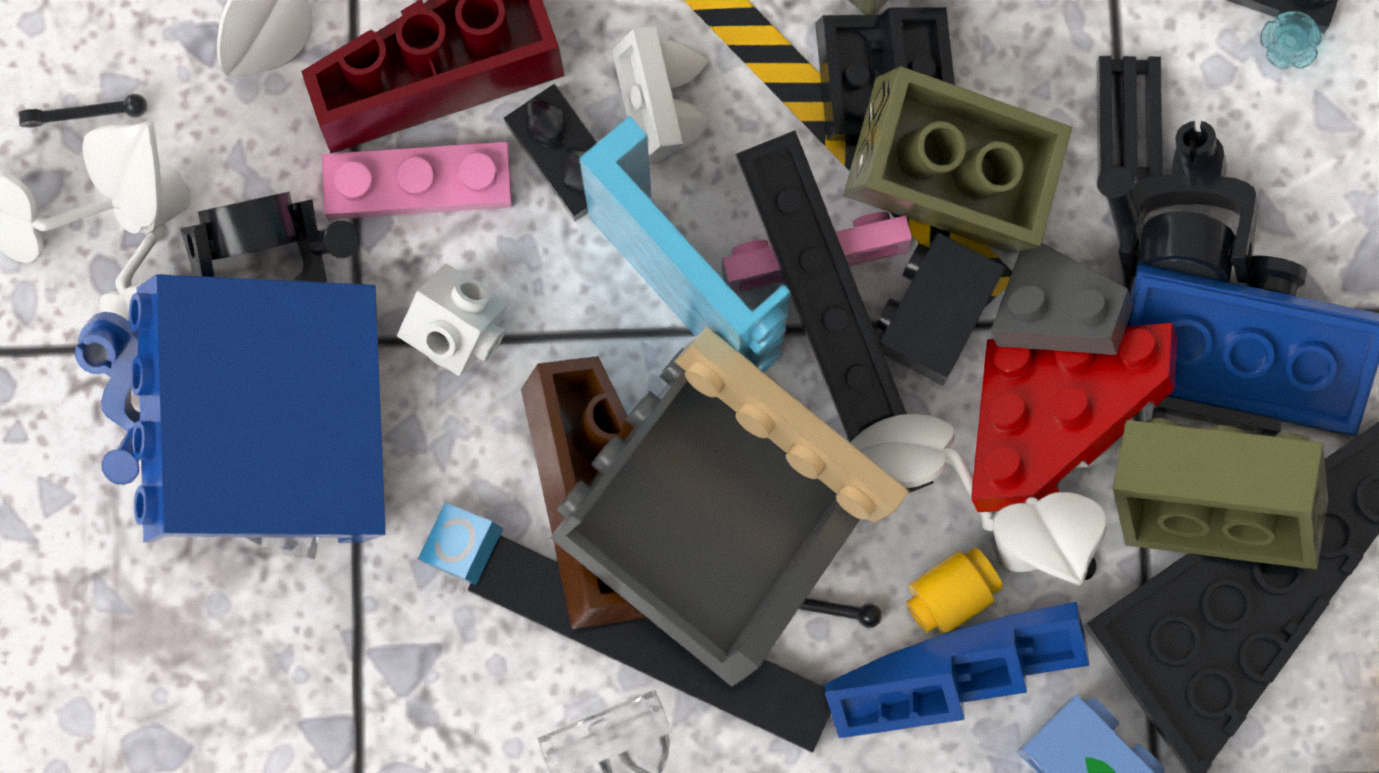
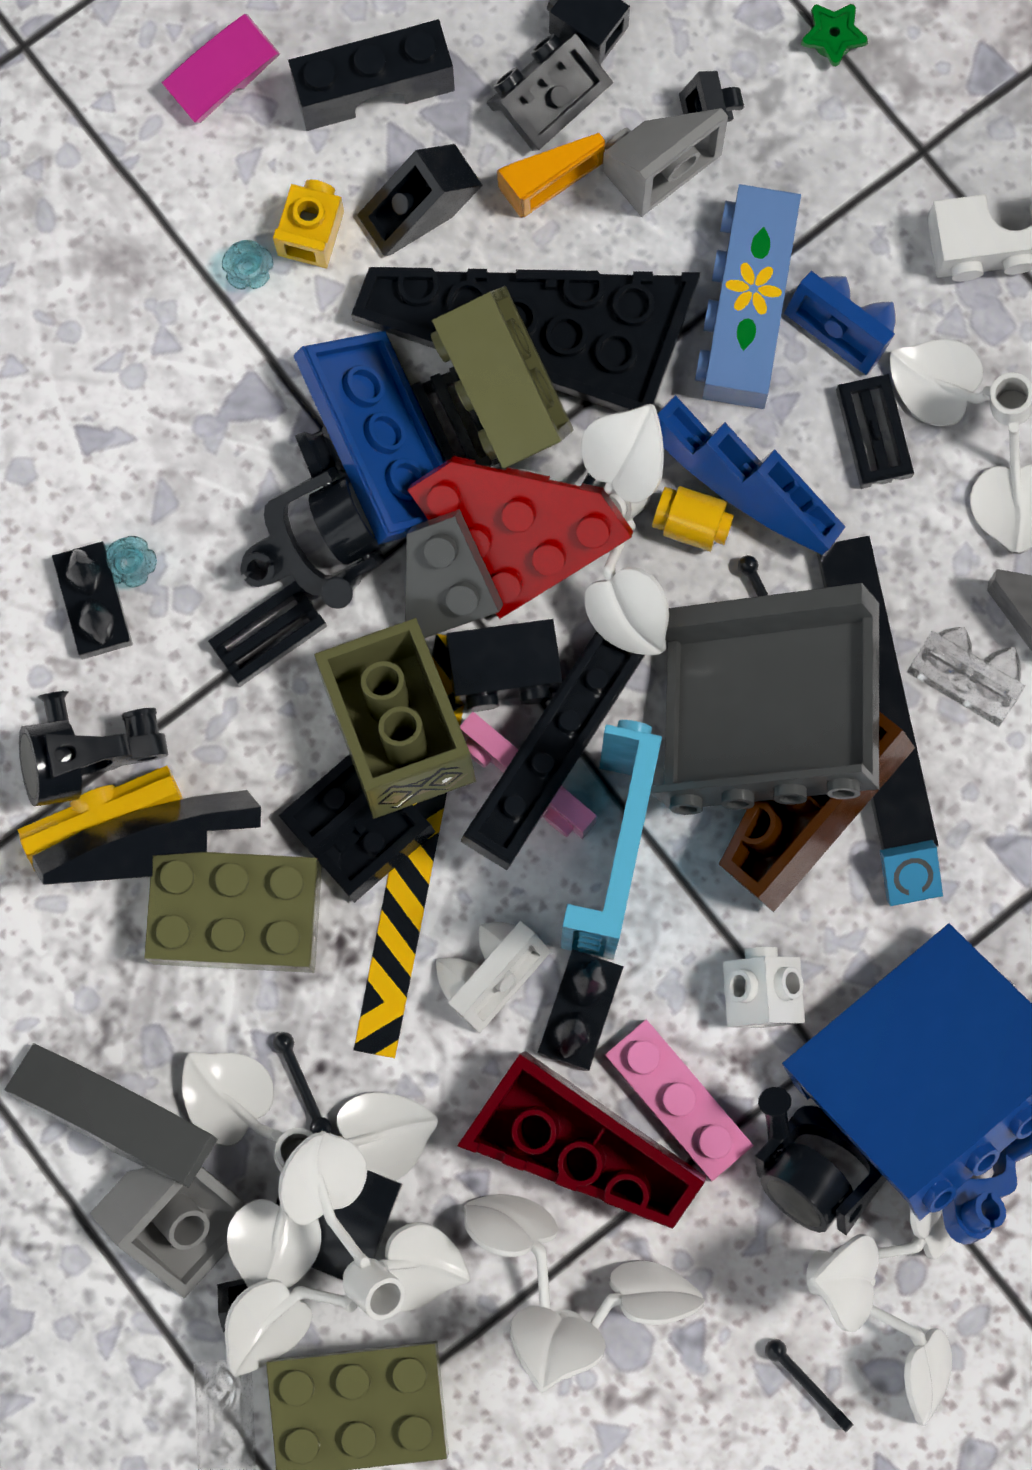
camera: 125 degrees left, 0 degrees up
(775, 414) = (678, 707): tan plate -> none

